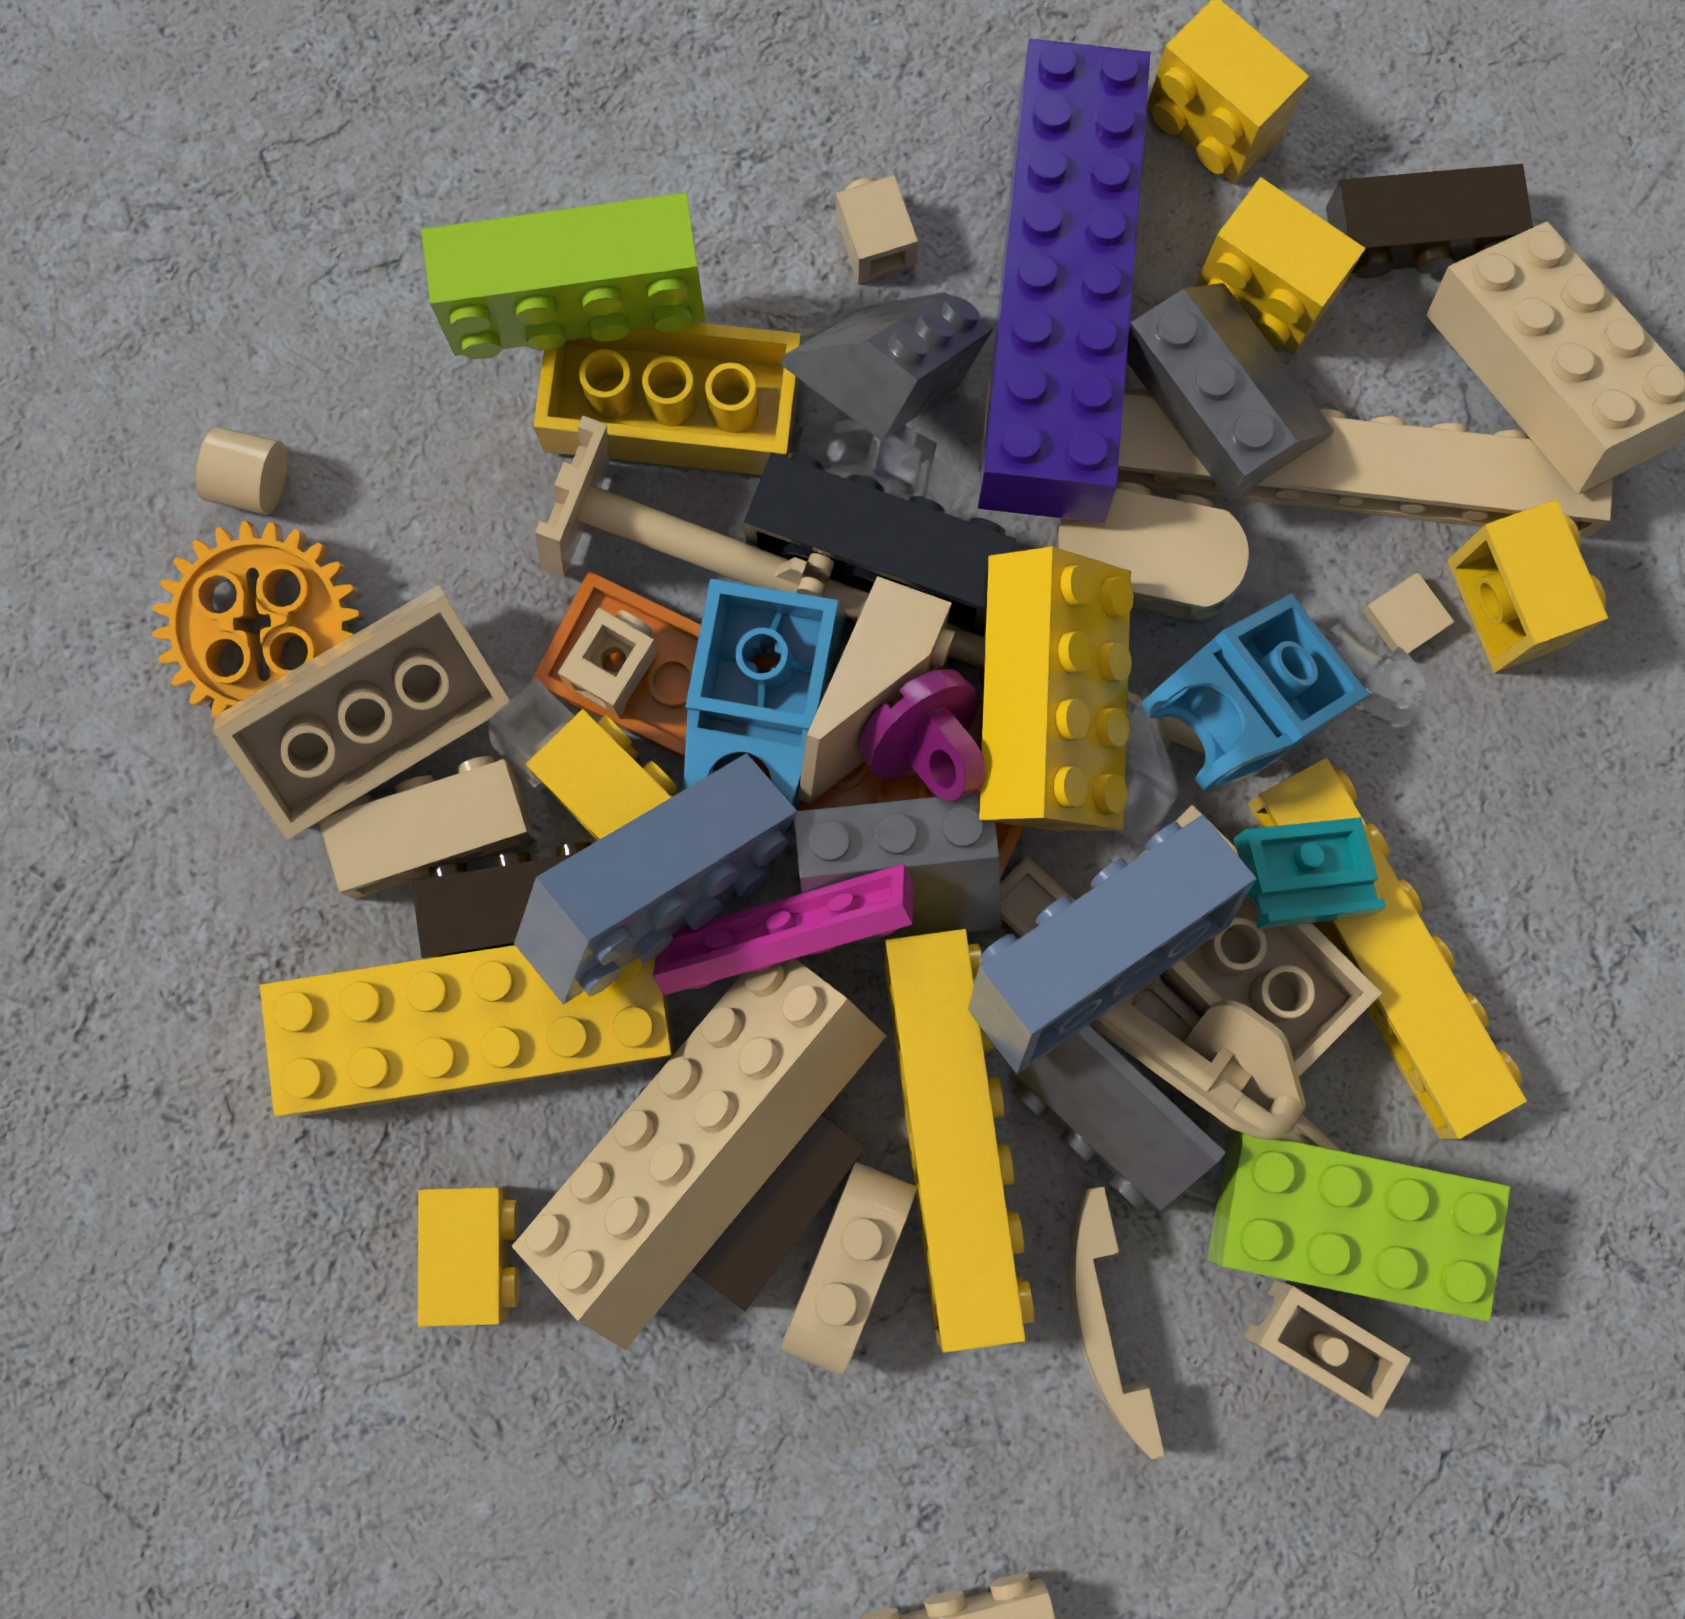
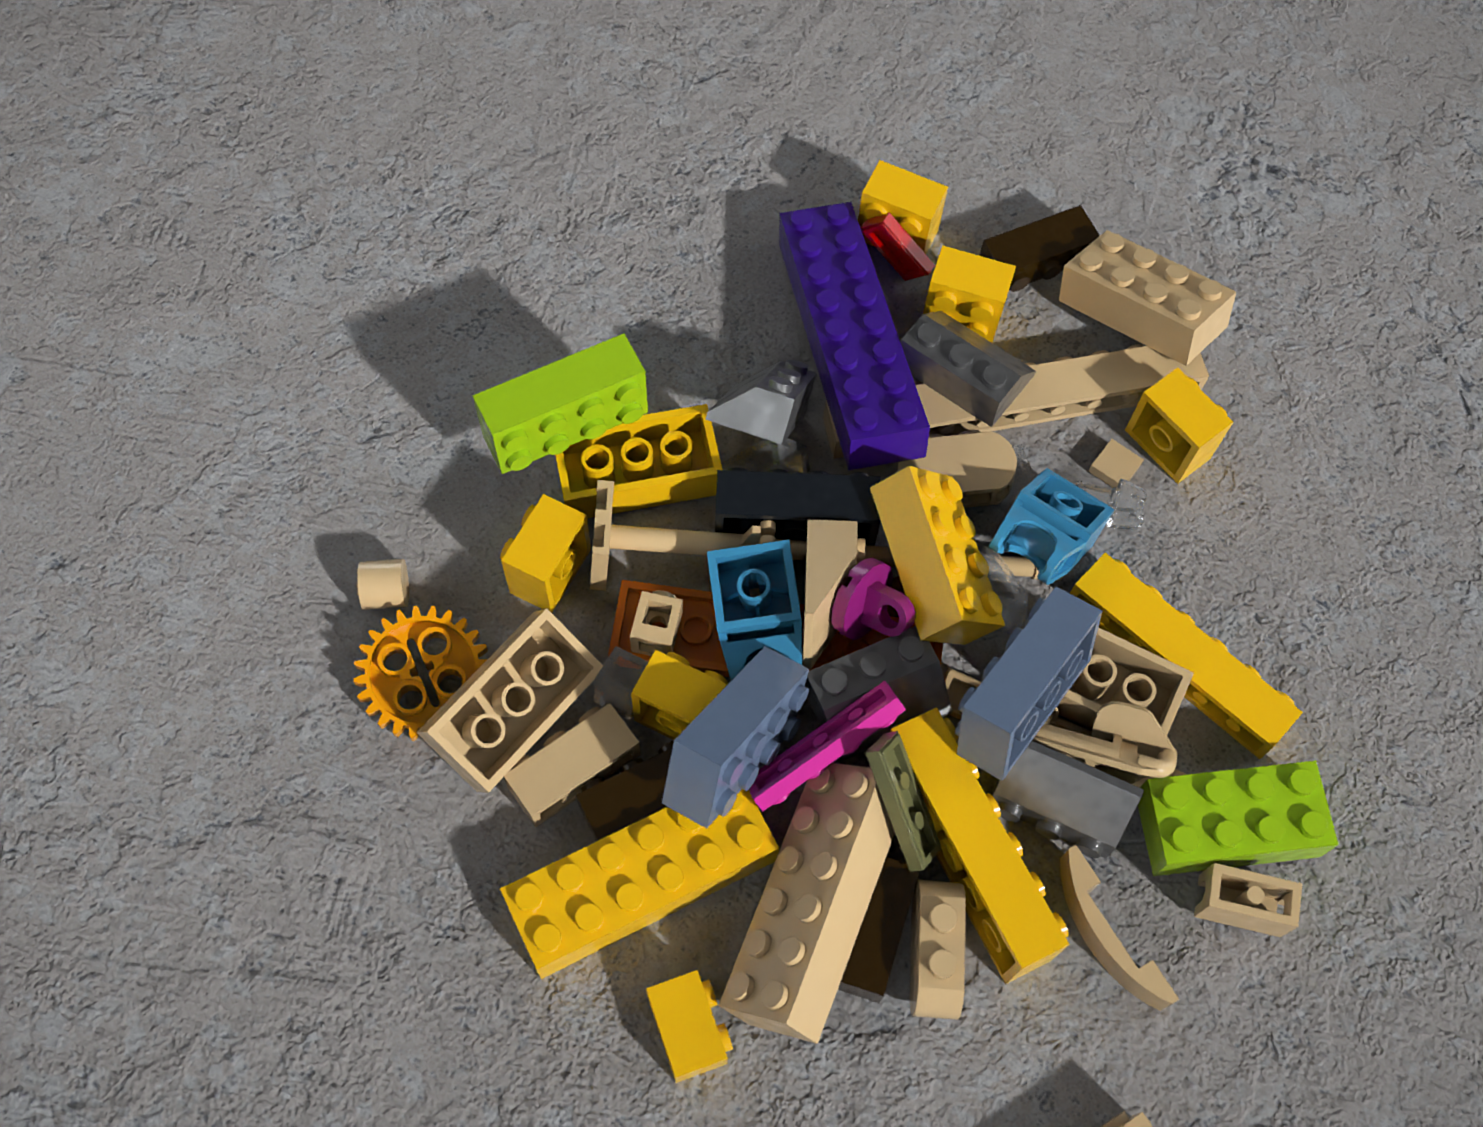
camera: 20 degrees left, 15 degrees down
(483, 497) = (546, 552): none -> yellow brick
(866, 1050) = (903, 800): none -> olive tile
(876, 228) = (725, 340): tan brick -> none
(1196, 151) = (897, 246): none -> red tile
(1310, 872) = (1129, 615): teal plate -> none

